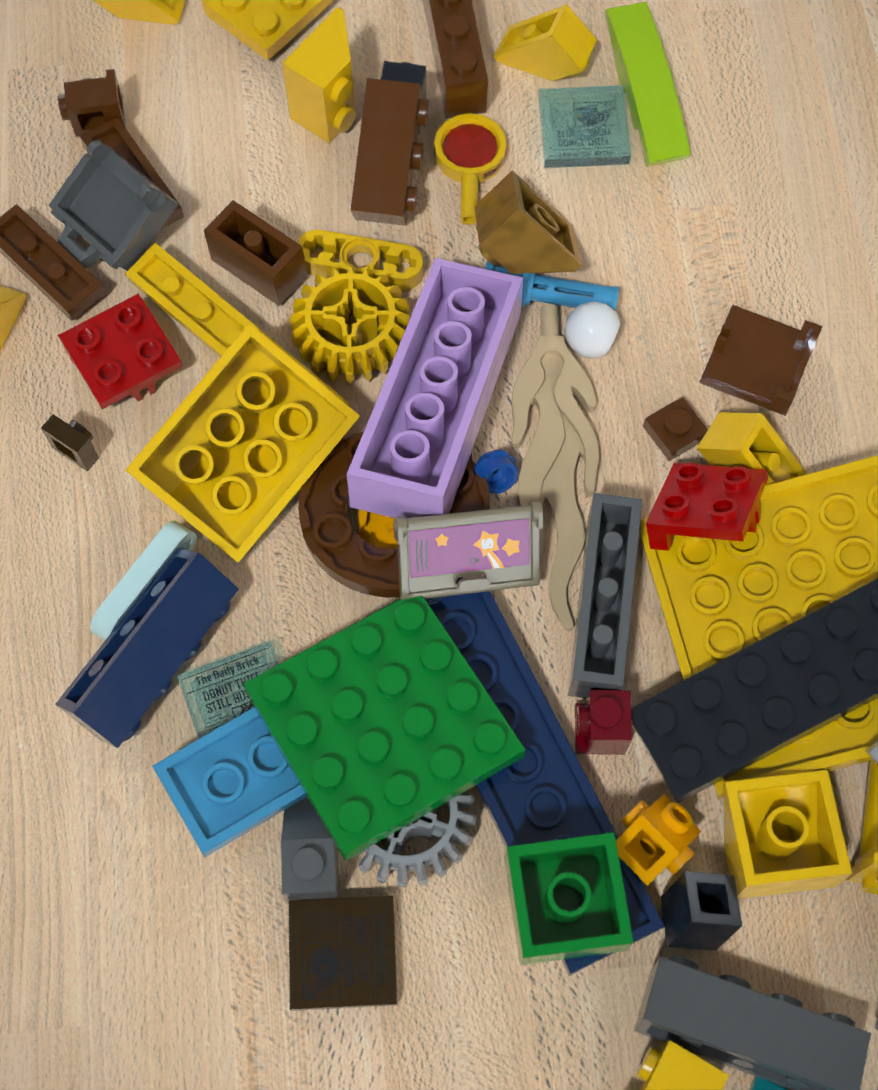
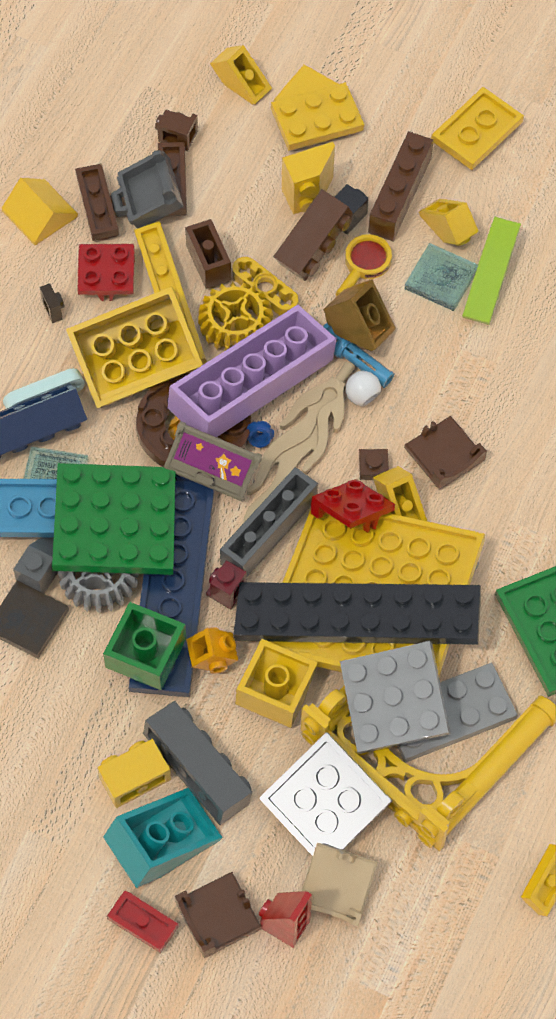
camera: 30 degrees right, 5 degrees down
(701, 911) = (210, 693): black brick -> none

